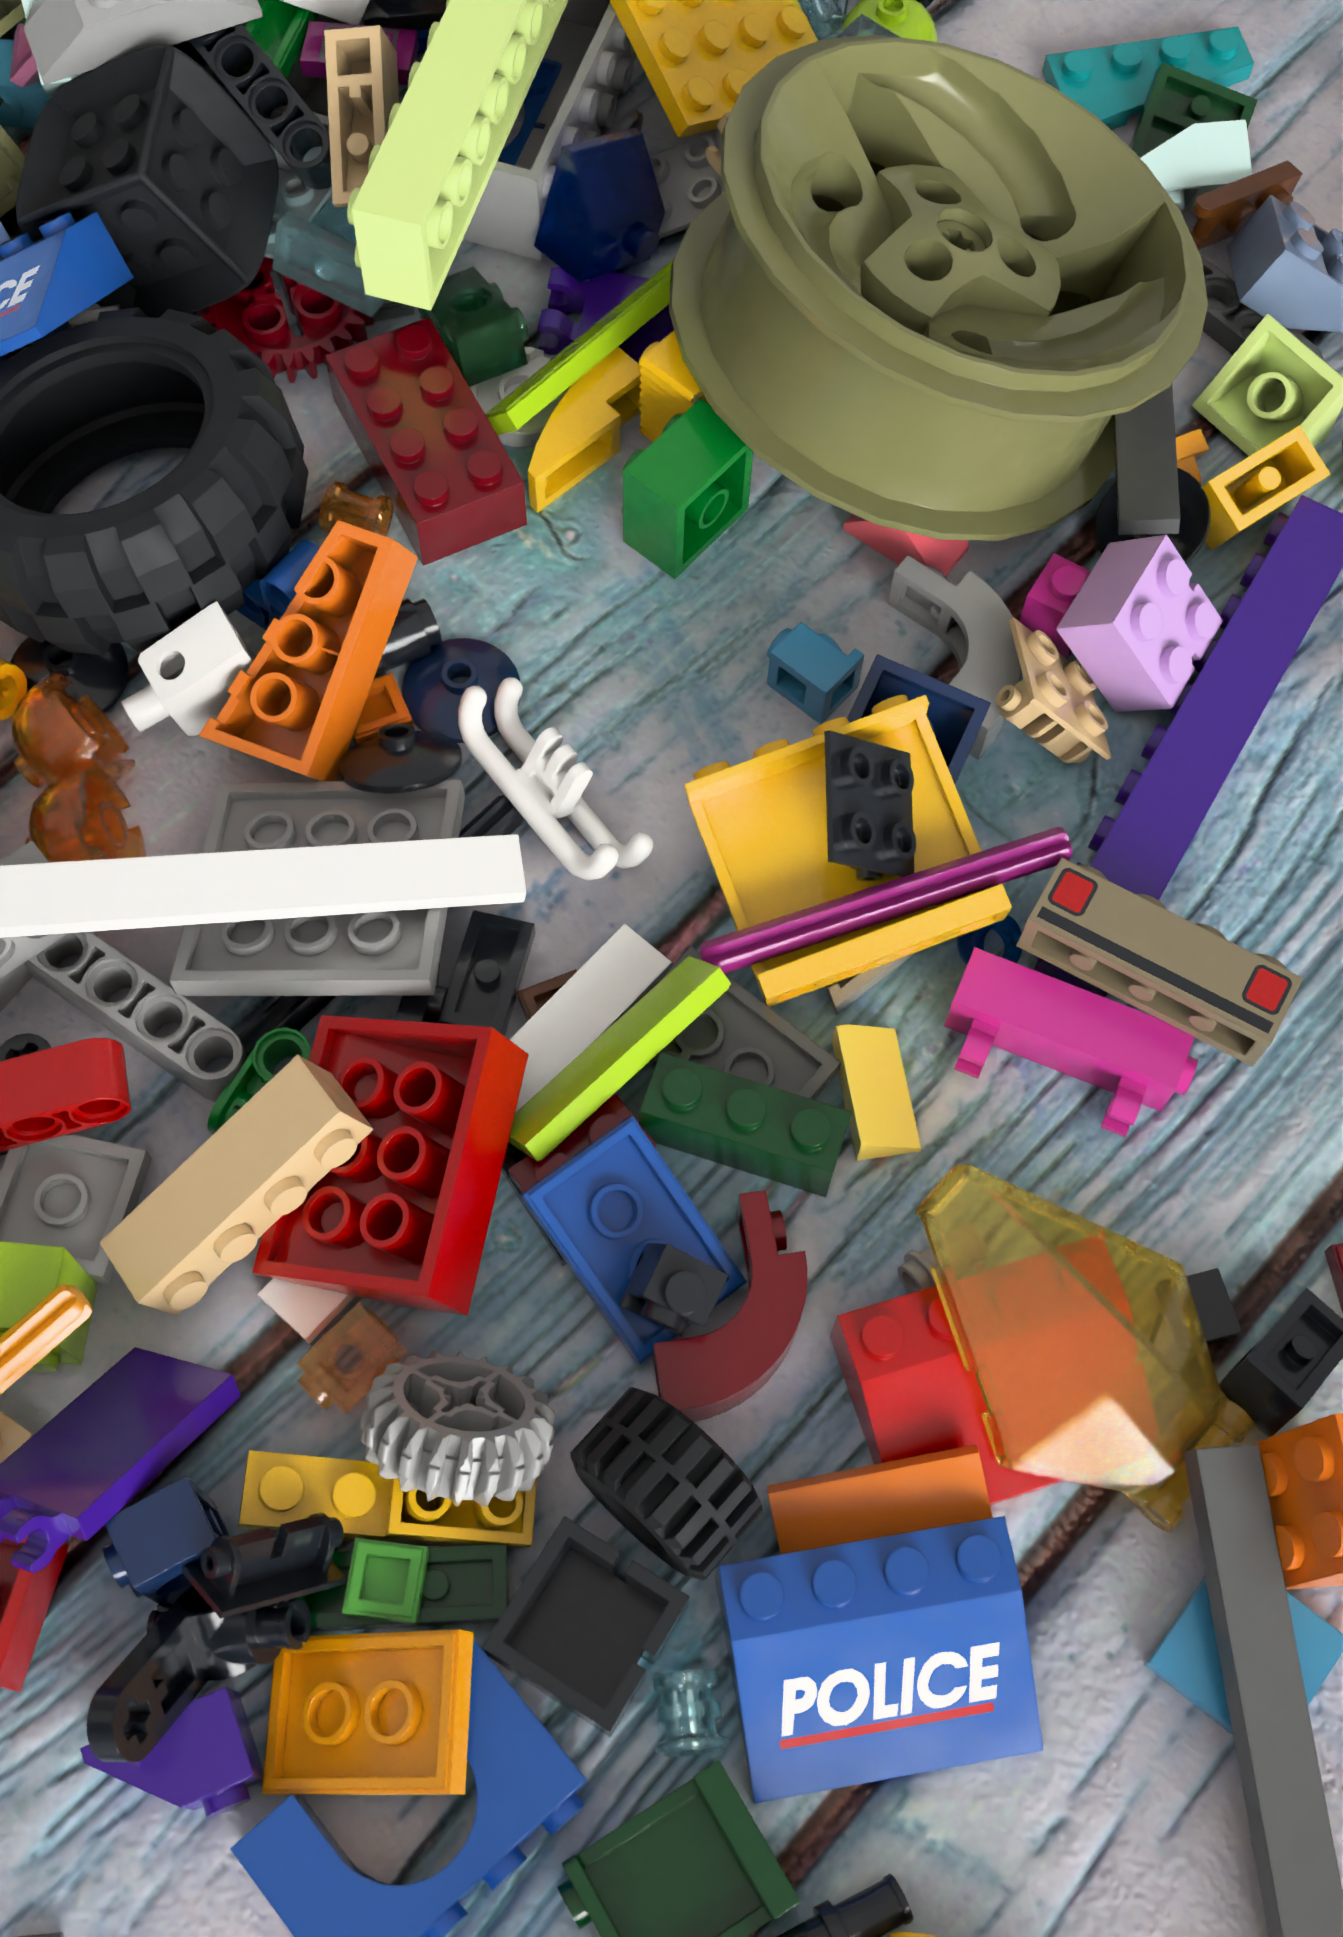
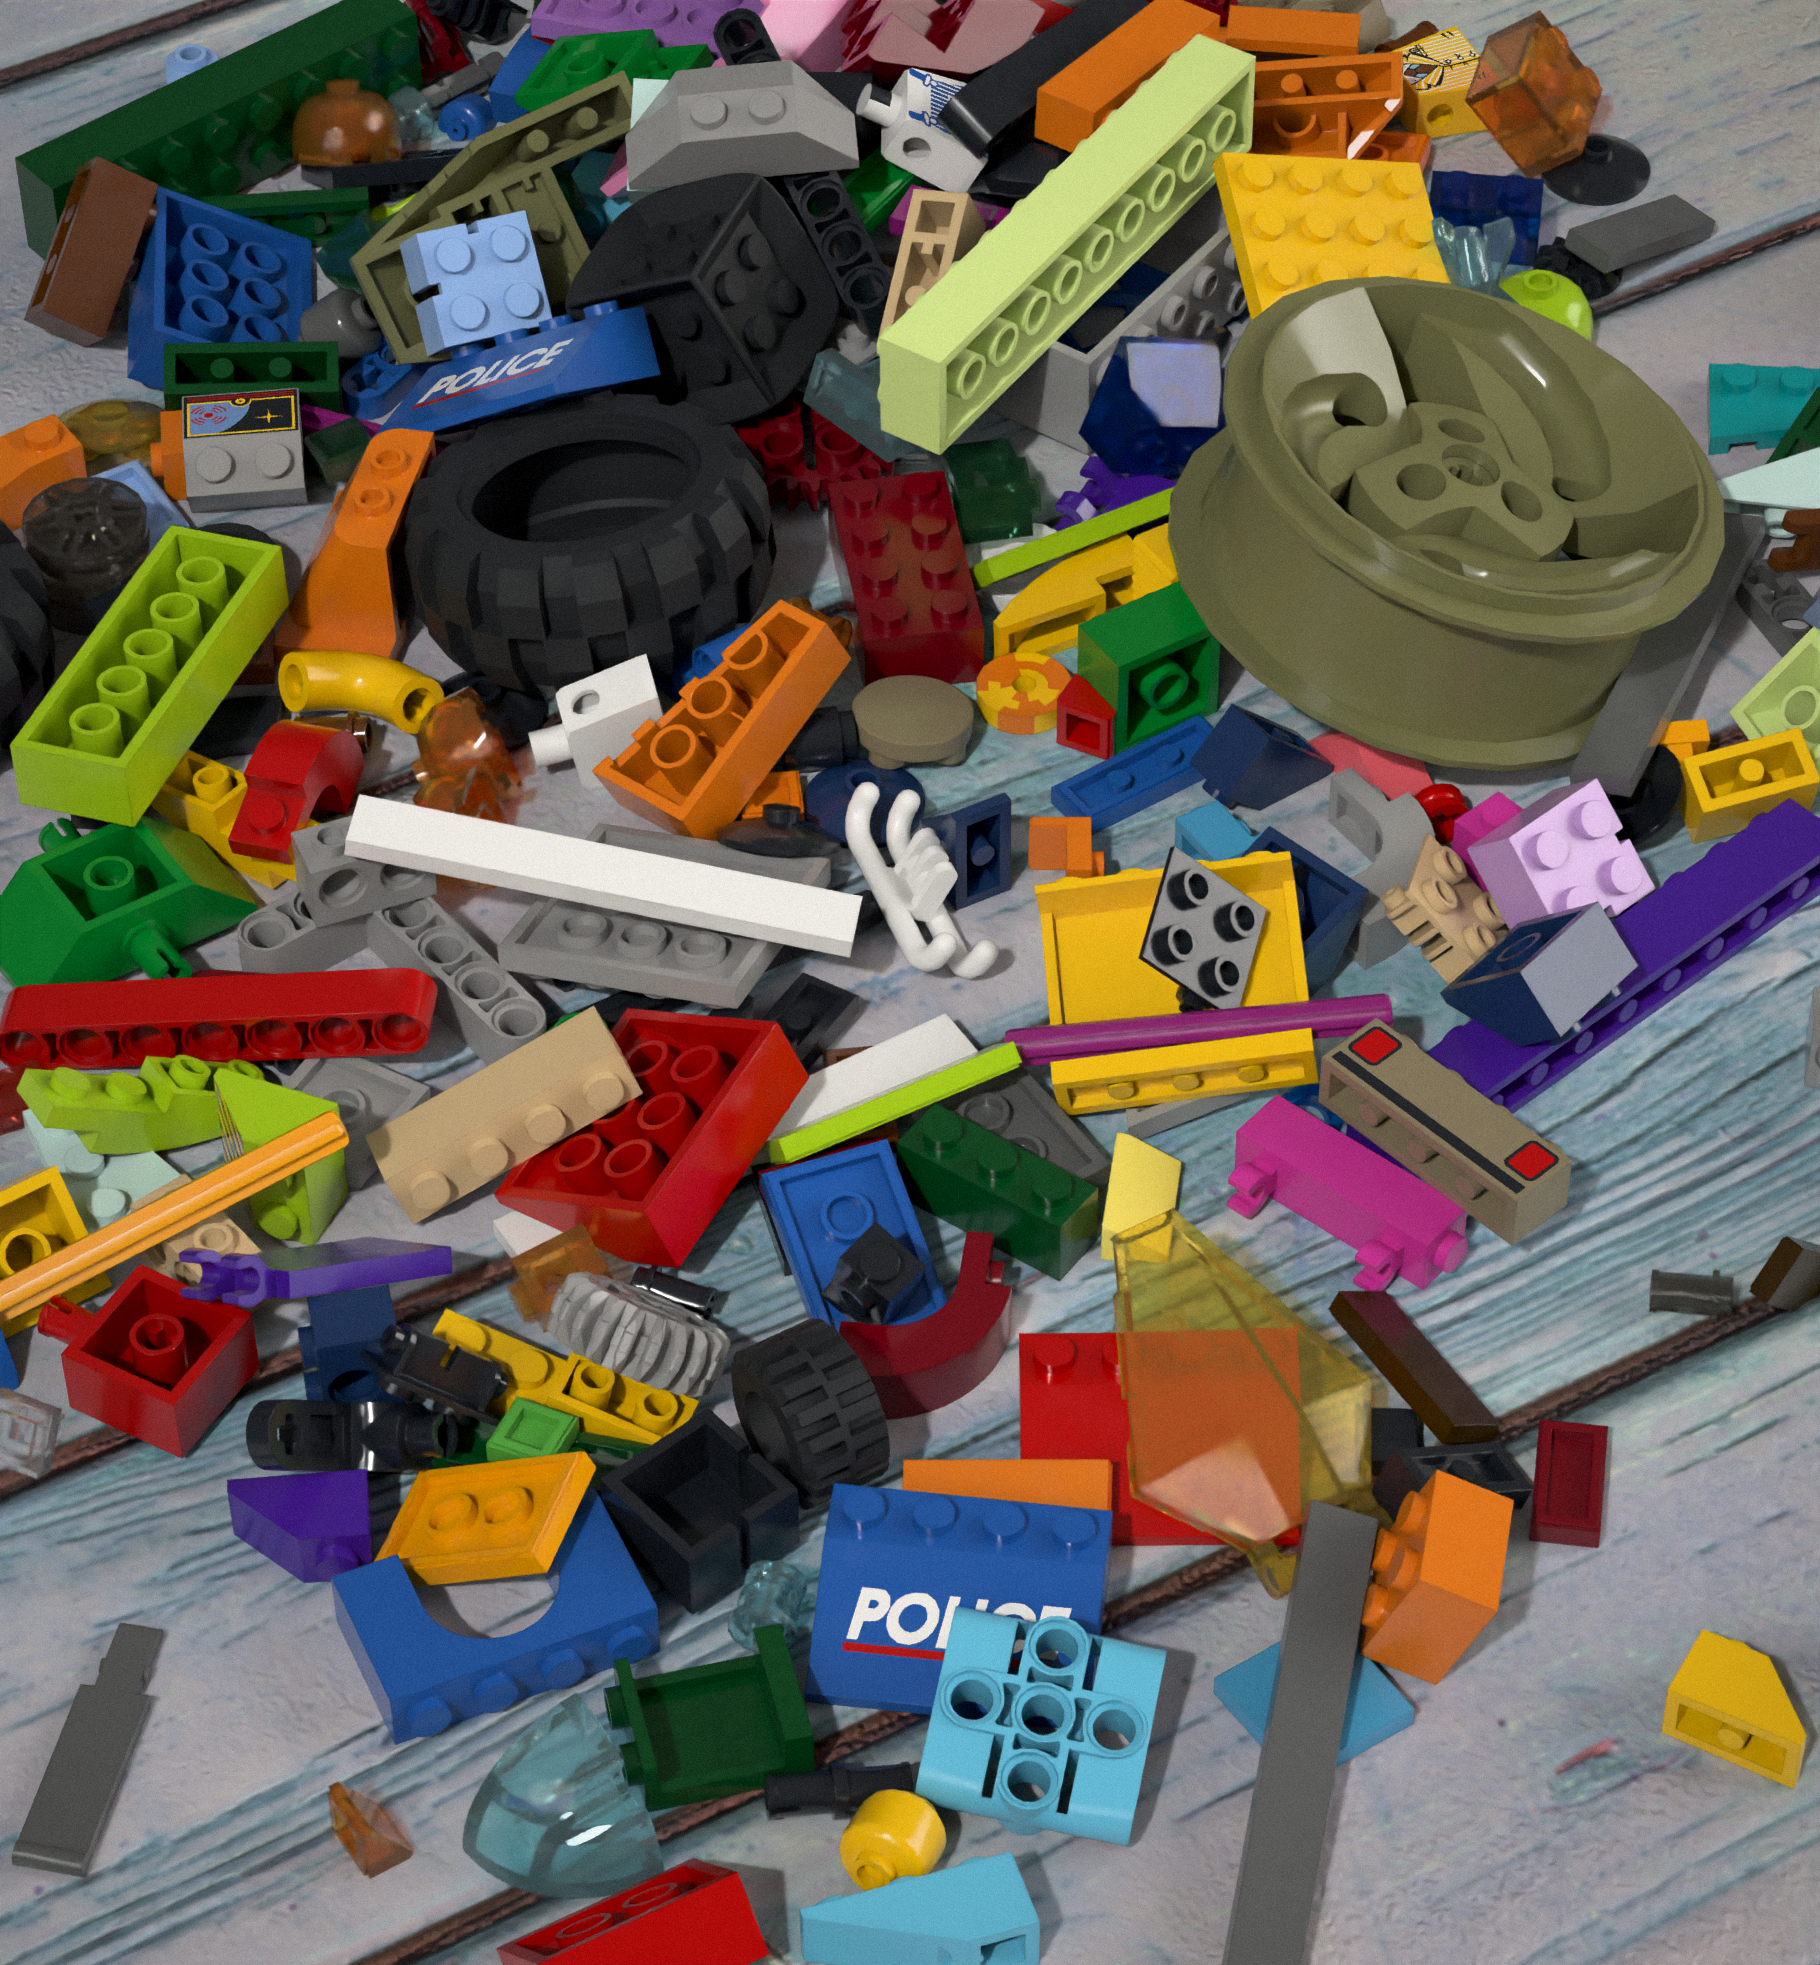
camera: 20 degrees right, 20 degrees down
(470, 1335) = (679, 1291): none -> black pin
(482, 592) = (912, 721): none -> dark tan tile
(575, 553) = (1021, 692): none -> piece
(590, 718) = (977, 846): none -> dark blue slope
(643, 553) = (1085, 720): none -> red slope
(679, 698) = (1064, 845): none -> orange bracket
(708, 597) = (1134, 777): none -> blue tile
(812, 562) = (1256, 760): none -> dark blue slope
(971, 1869) = (978, 1671): none -> medium azure connector
(998, 573) = (1446, 800): none -> red bush
(1178, 756) = (1544, 976): none -> dark blue slope
(1199, 1219) = (1413, 1367): none -> dark brown tile

